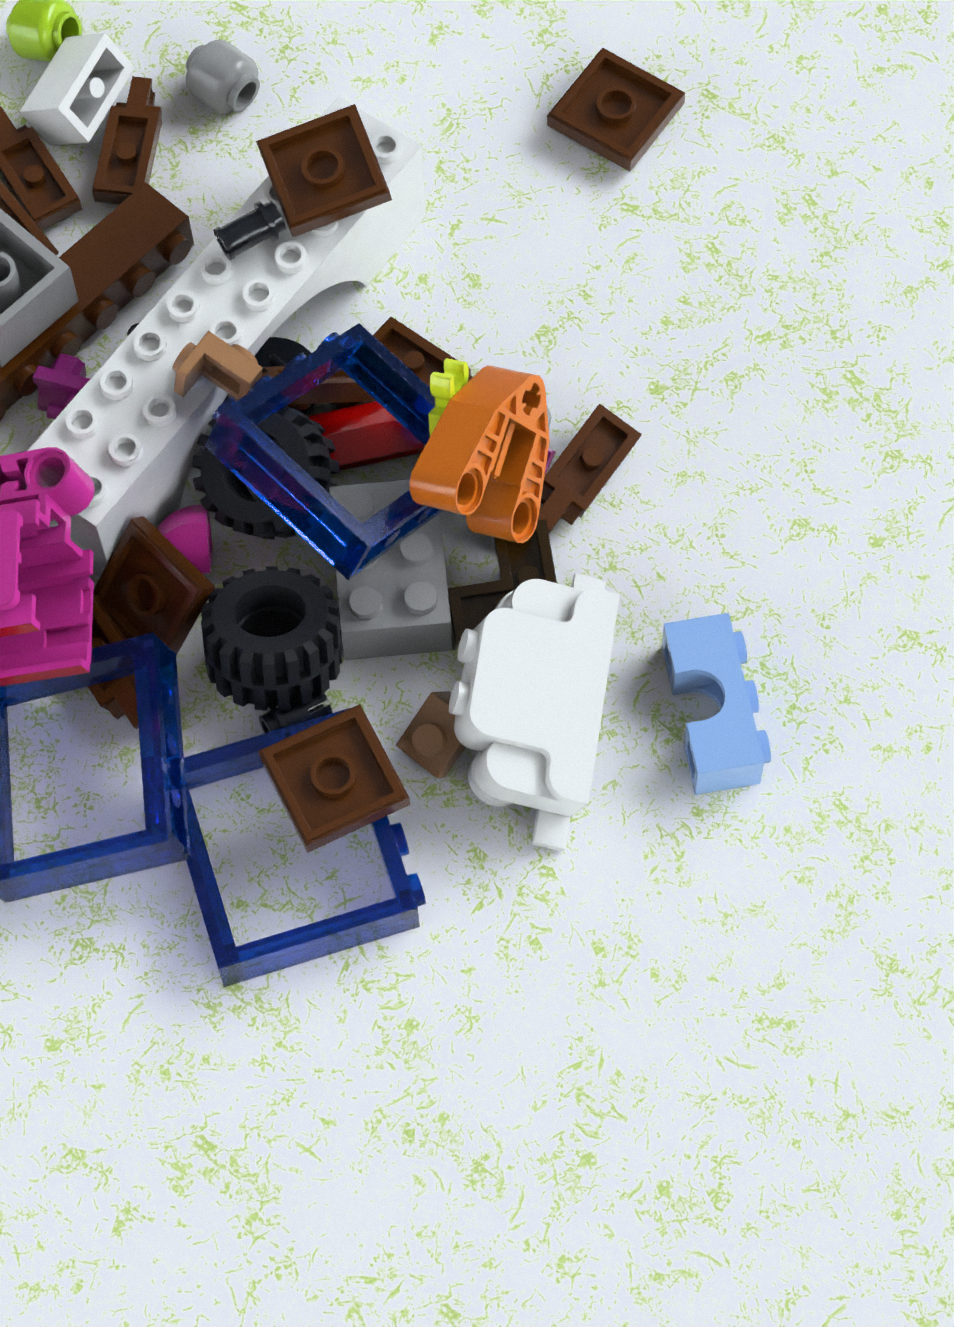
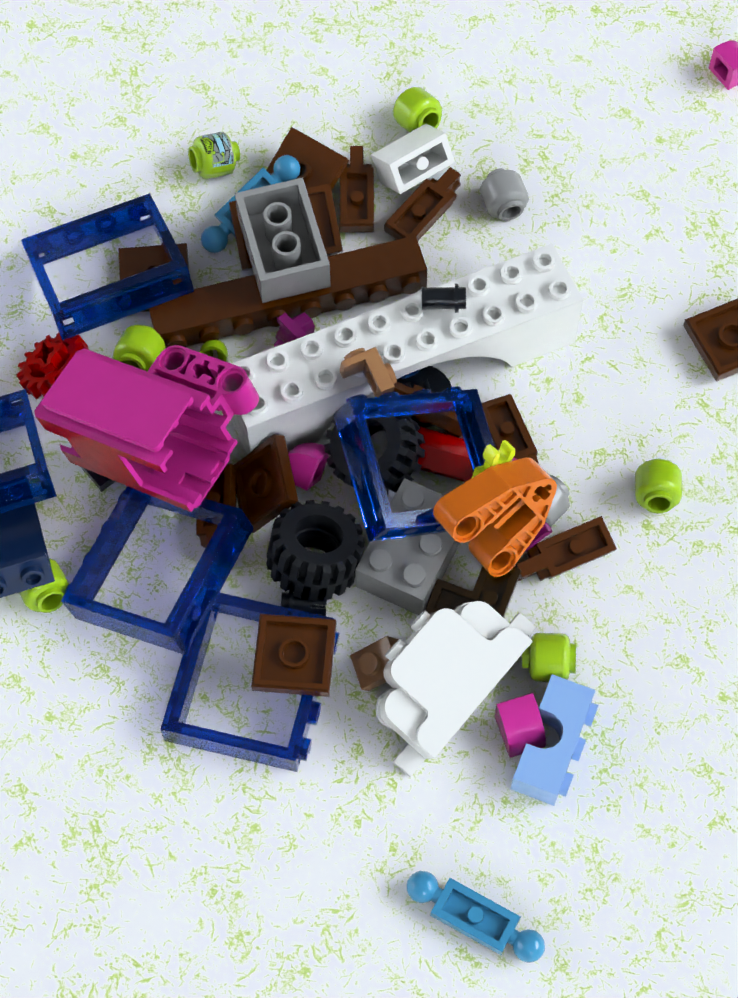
camera: 30 degrees right, 0 degrees up
(324, 170) = (510, 285): reddish brown plate -> none
(643, 331) = (658, 485): none -> lime head
(646, 604) = (550, 655): none -> lime head
(659, 708) = (520, 724): none -> dark pink brick
(754, 966) = (475, 916): none -> dark azure plate

